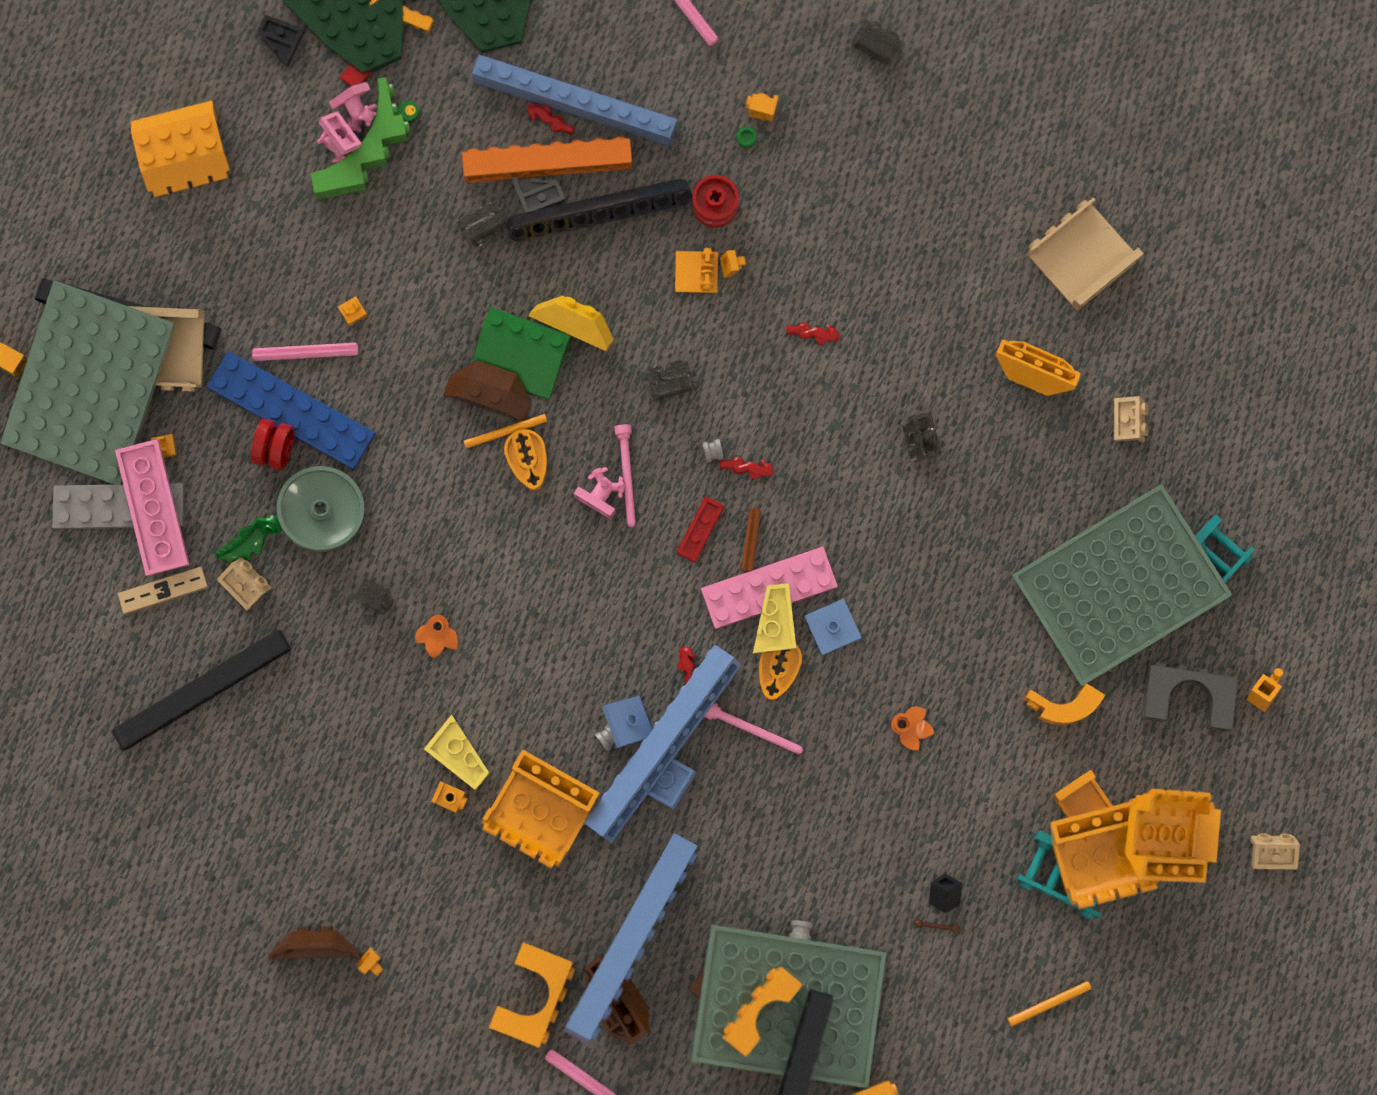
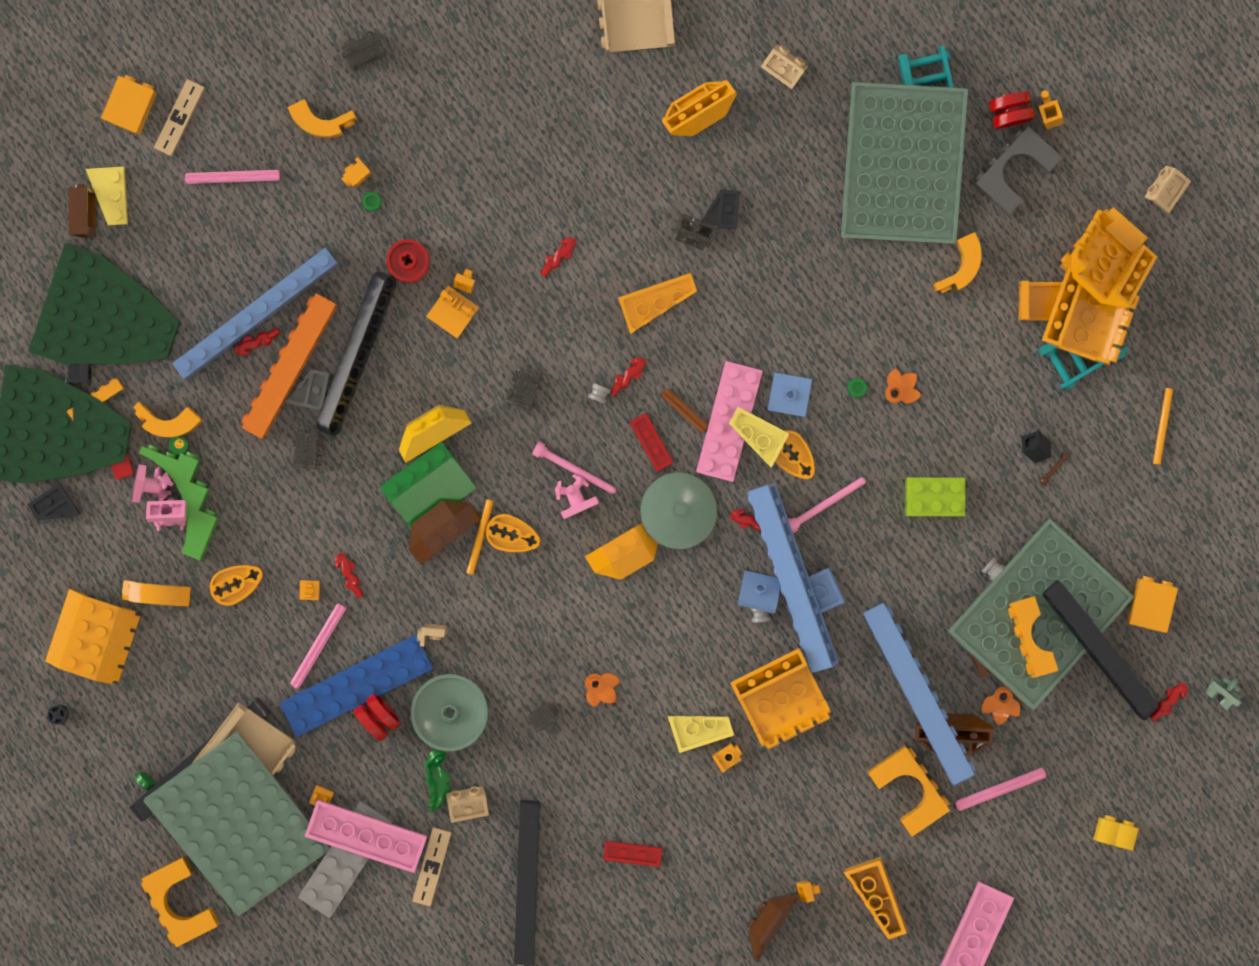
camera: 55 degrees left, 10 degrees up
(76, 277) = (144, 780): none -> green tile
(84, 160) = (54, 714): none -> black wheel
(258, 176) = (156, 593): none -> light orange arch
(297, 771) = (632, 853): none -> red tile
(305, 249) = (228, 575): none -> light orange piece
(382, 438) = (434, 632): none -> tan bracket
(395, 331) = (352, 580): none -> red animal
(413, 1029) = (876, 891): none -> light orange wedge
(428, 101) = (179, 426): none -> light orange arch
(583, 573) = (624, 554): none -> light orange wedge
(653, 595) = (678, 511): none -> sand green dish
(671, 1030) = (1001, 708): none -> orange plate
(780, 48) = (320, 128): none -> light orange arch
(831, 443) = (654, 300): none -> light orange wing
(831, 827) = (934, 496): none -> lime brick
(882, 686) = (857, 388): none -> green tile
(961, 453) = (724, 210): none -> black wing
(1241, 651) = (1011, 108): none -> red wheel

